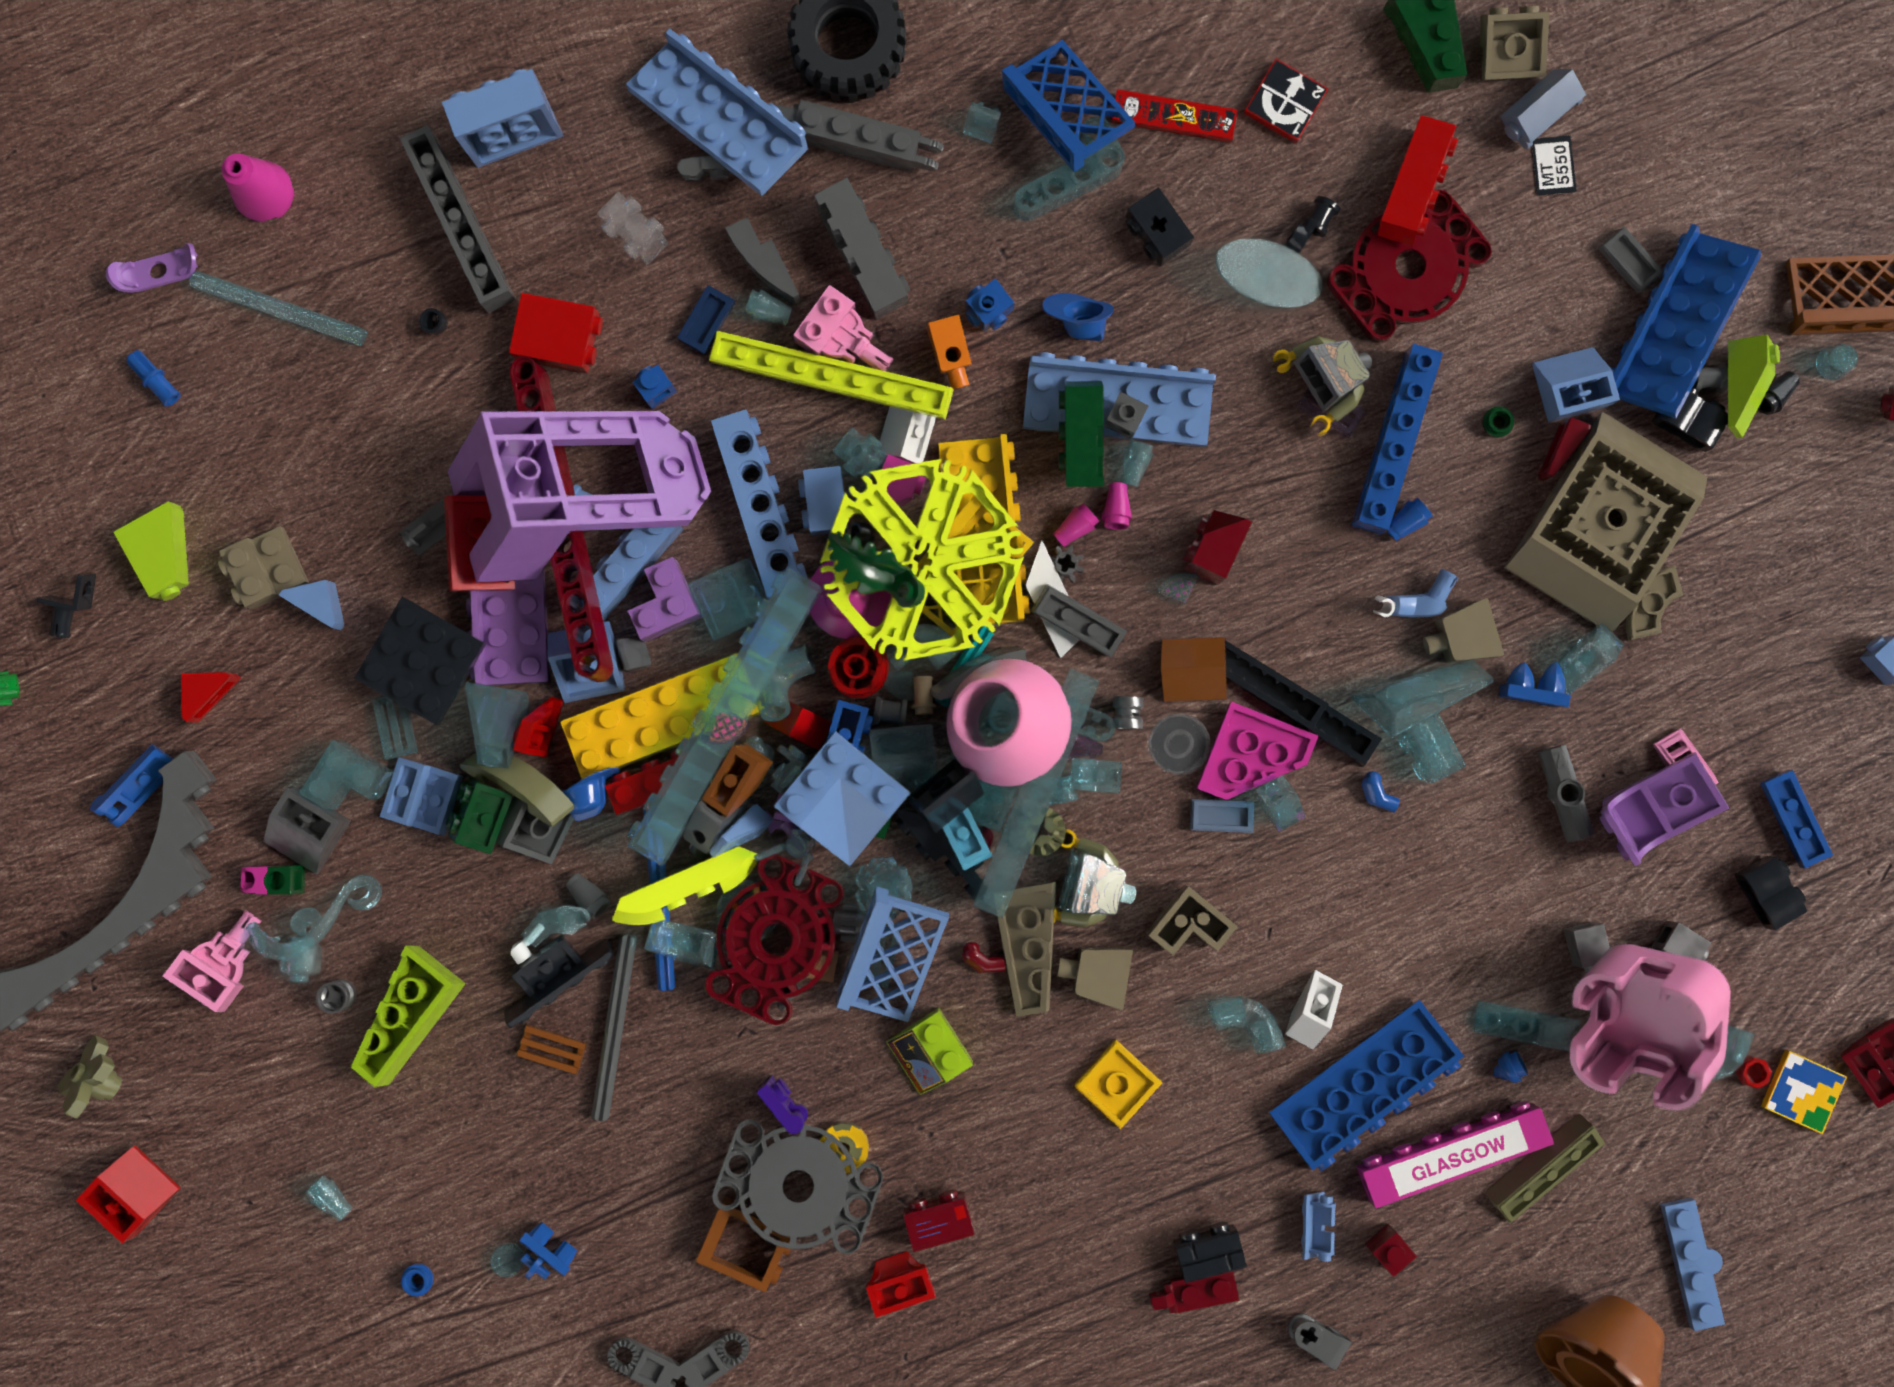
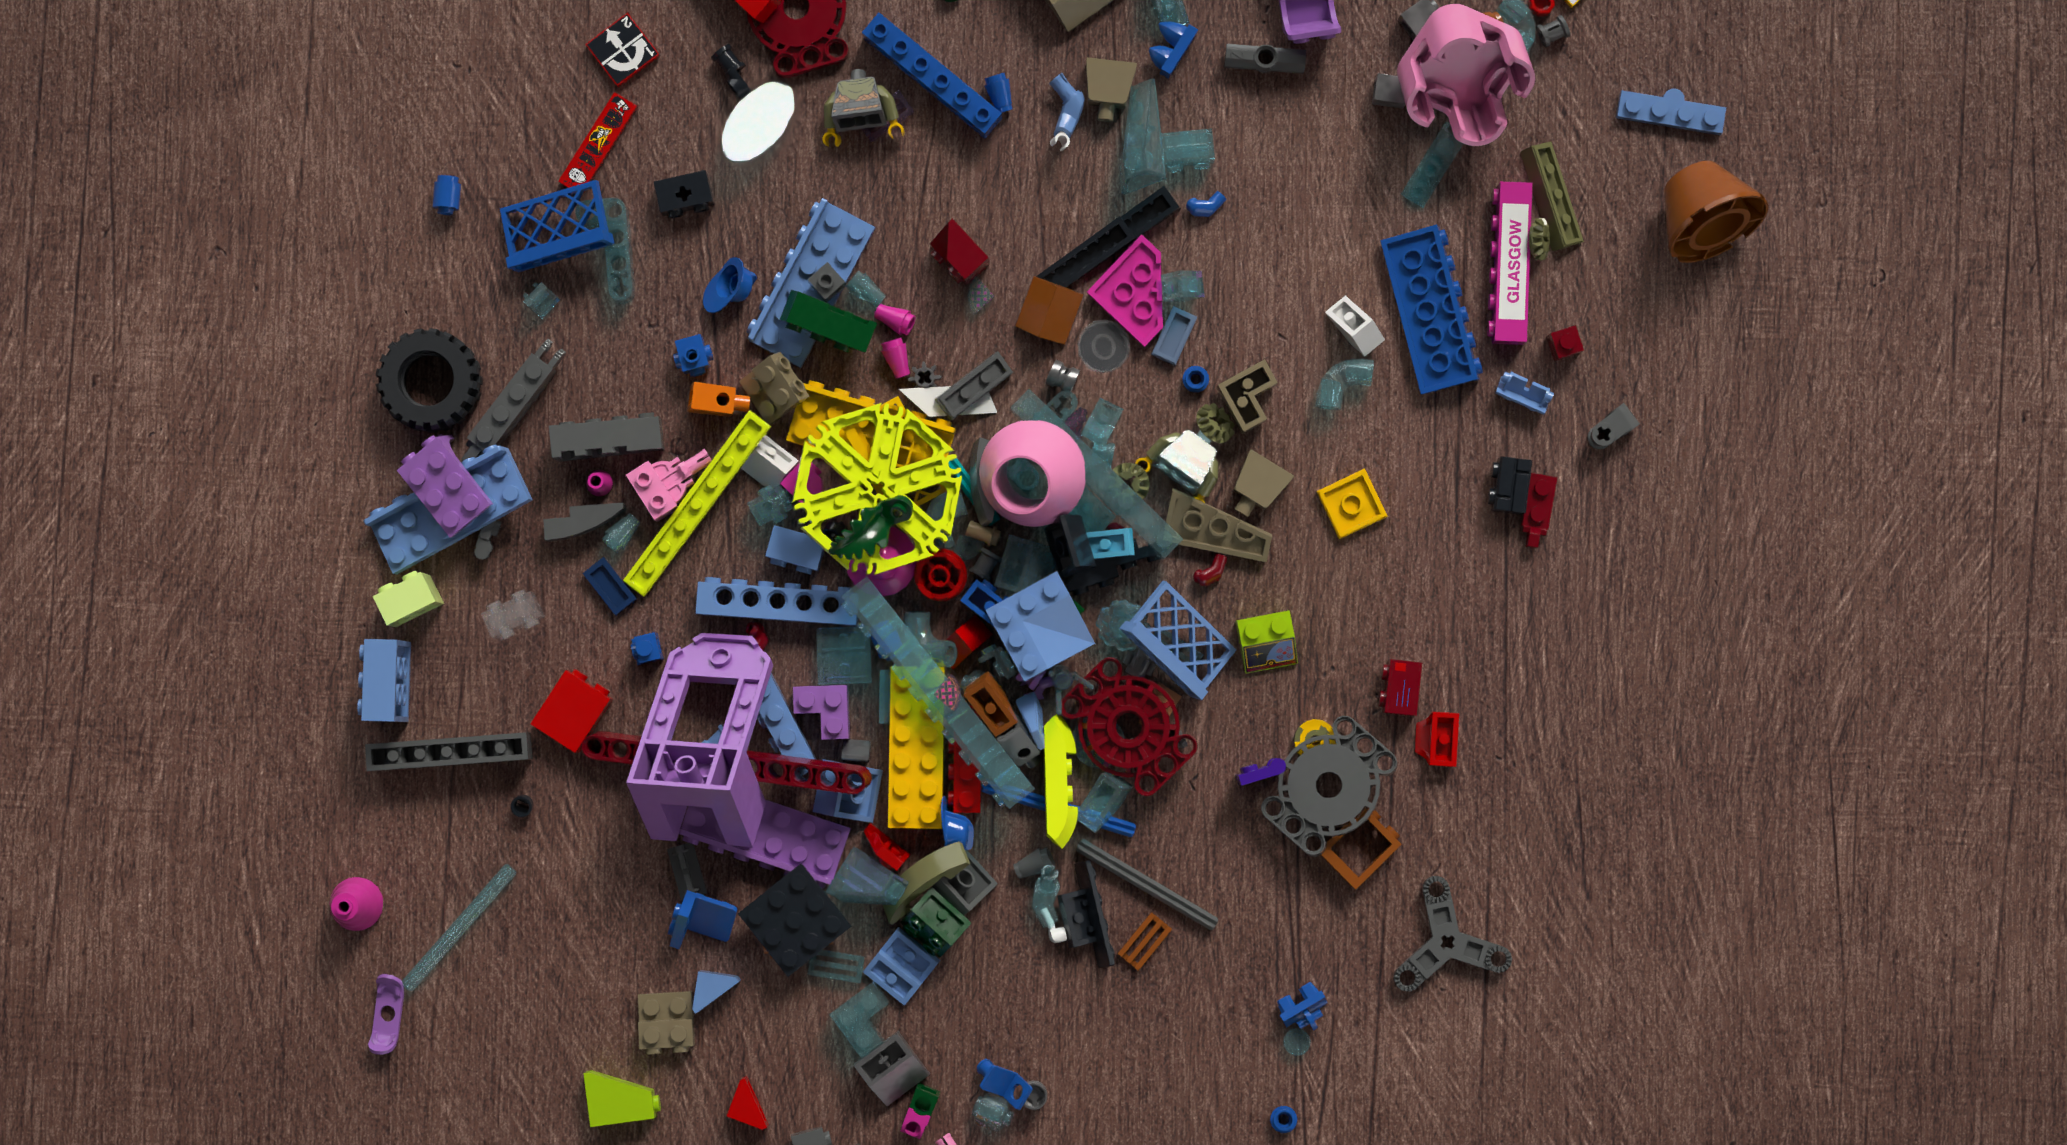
camera: 65 degrees left, 0 degrees up
(153, 378) = (474, 1051): blue axle -> none
(321, 925) = (961, 1091): clear light blue plant -> none
(334, 958) = (1003, 1082): none -> blue bracket
(389, 558) = (702, 916): none -> blue bracket
(412, 1006) = (1068, 1039): lime wedge -> none
(465, 522) = (703, 838): red plate -> none
(602, 108) = (407, 599): none -> yellowish green brick
(703, 659) = (884, 697): none -> clear light blue tile
(717, 498) = (758, 632): none -> dark red arm
(739, 93) = (444, 484): none -> medium lavender bracket
(814, 268) = (605, 485): none -> dark pink cone
(989, 406) = (774, 388): none -> dark tan plate
(1137, 897) = (1210, 428): none -> olive gear
(1194, 856) = (1195, 370): none -> blue plate
(1494, 1176) = (1539, 239): none -> olive gear
(1510, 1067) = (1462, 191): blue plate -> none
(1728, 1098) = (1553, 31): none -> dark grey bush

